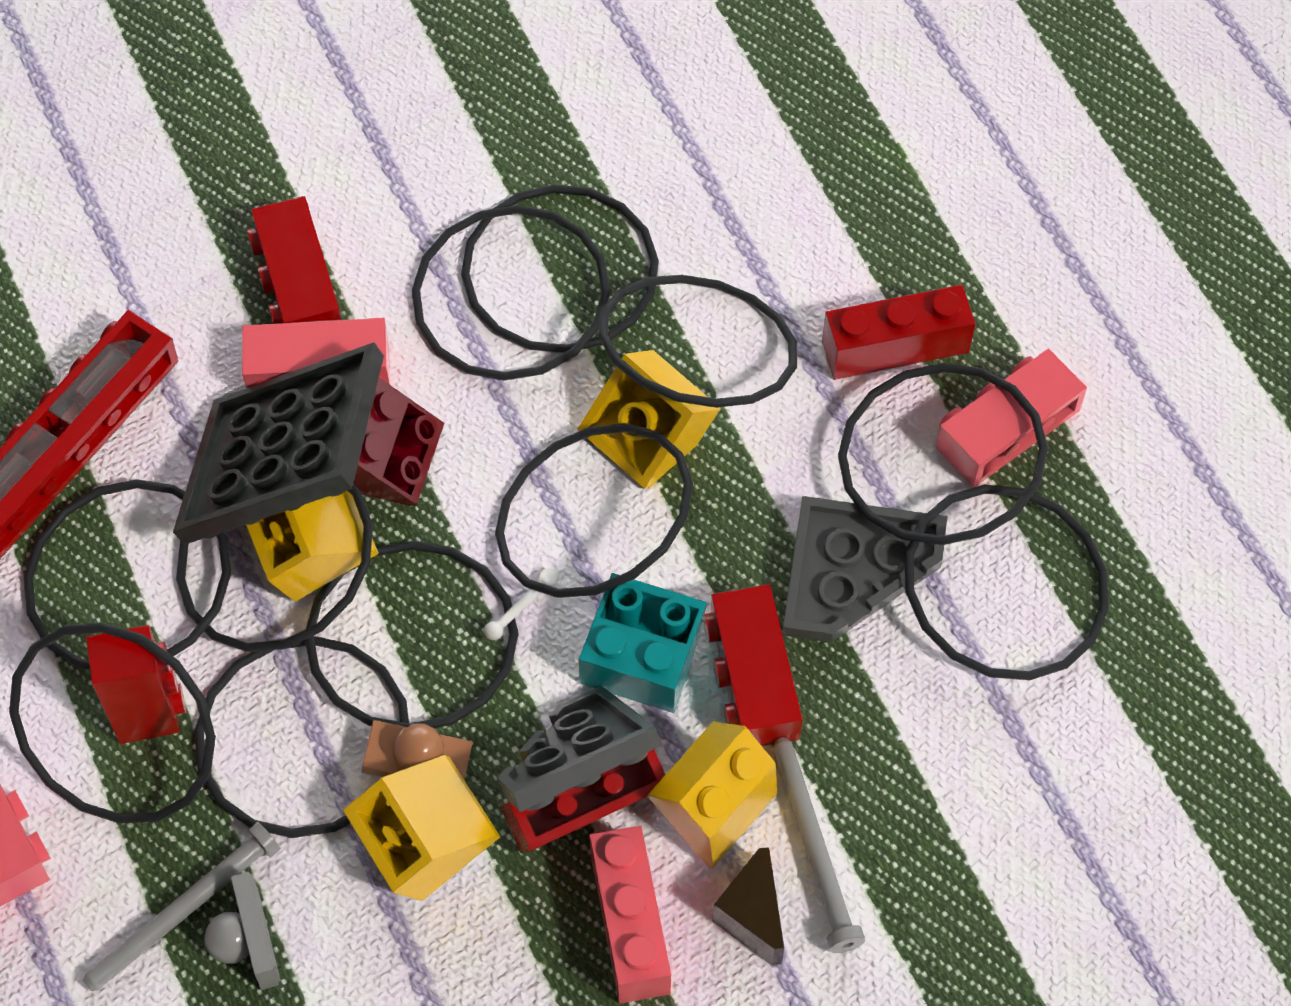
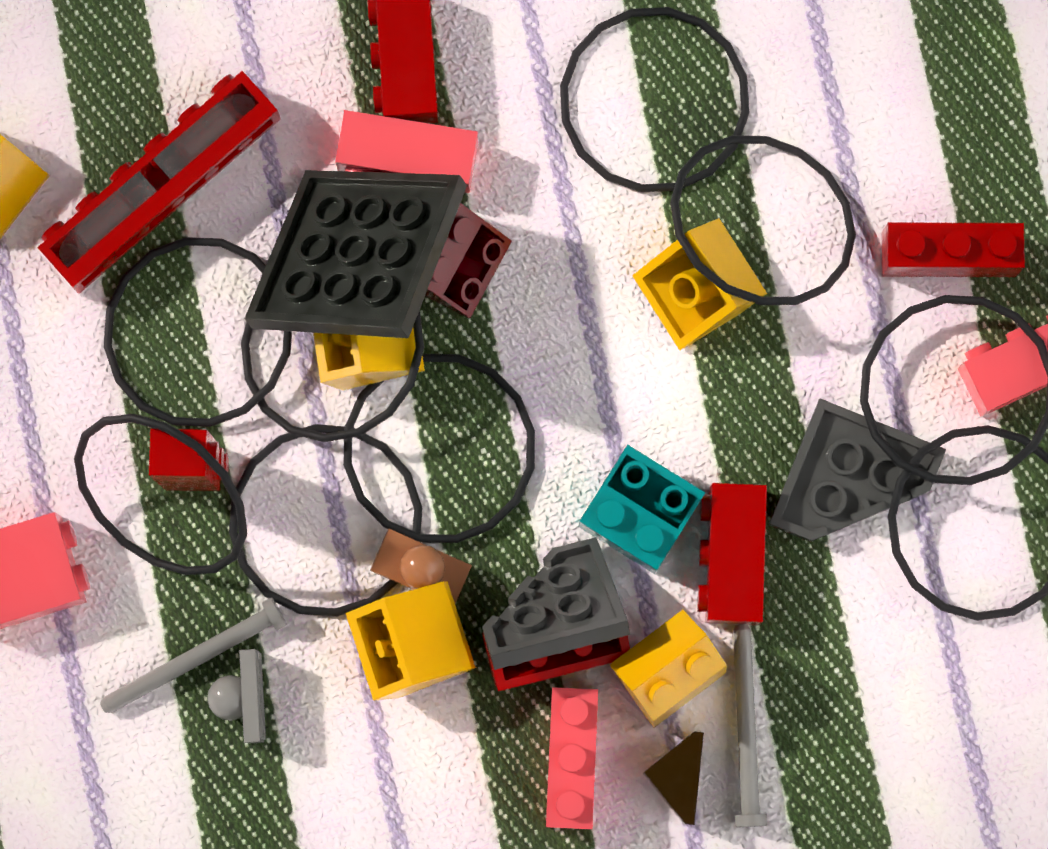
camera: 15 degrees right, 20 degrees up
(494, 629) = (571, 421): white hinge -> none
(521, 373) = (599, 205): black piece -> none
(639, 568) = (692, 422): black piece -> none

